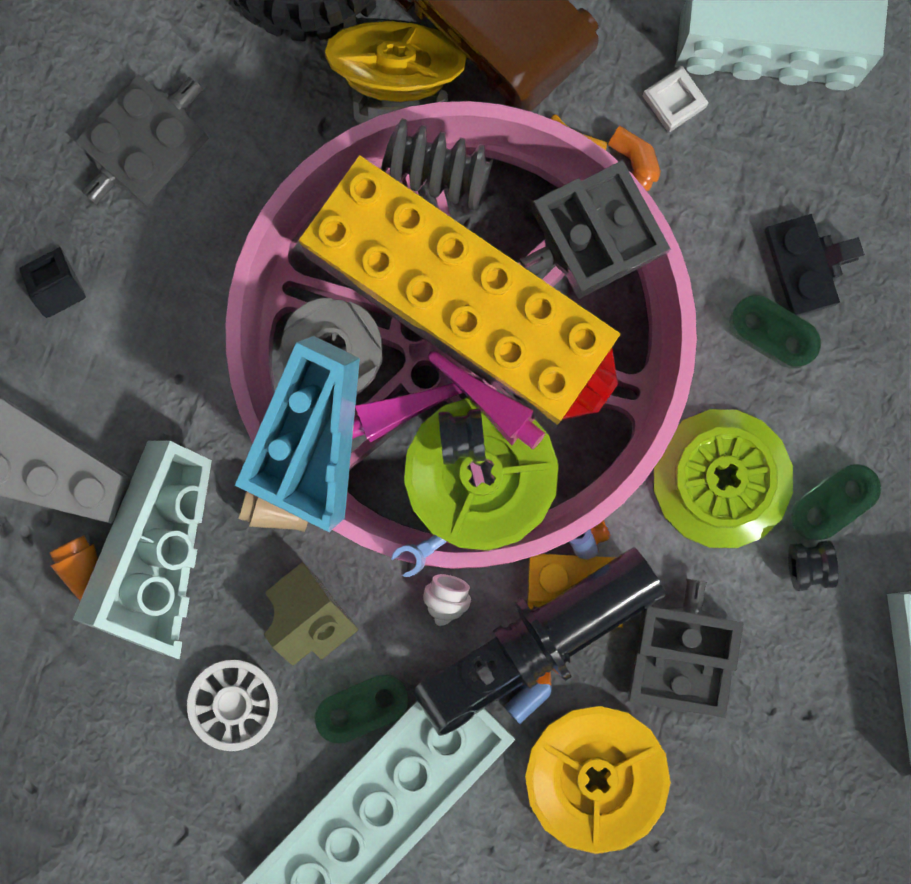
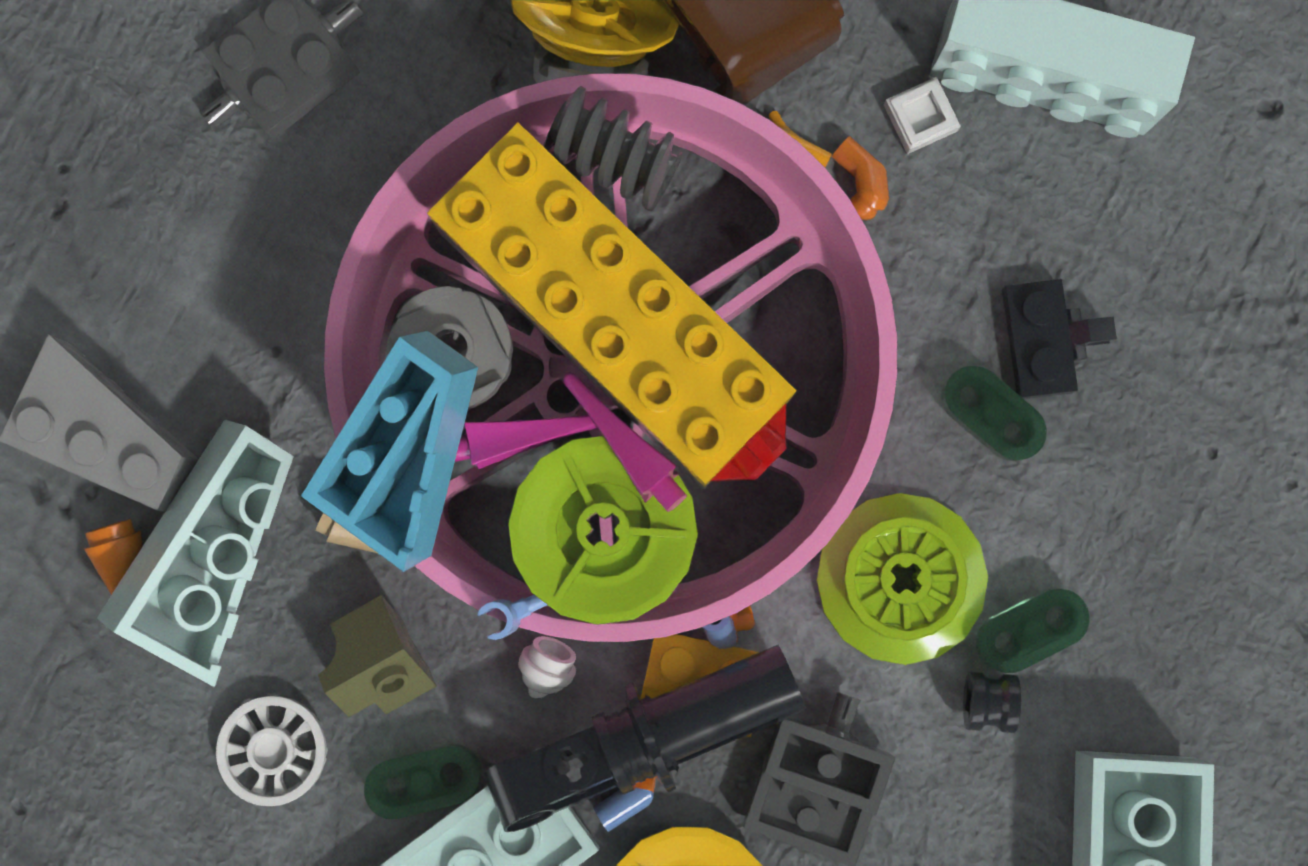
camera: 15 degrees right, 0 degrees up
(52, 283) = (146, 214): black slope -> none
(462, 436) = (584, 482): black wheel -> none
(596, 230) = (792, 259): dark grey plate -> none

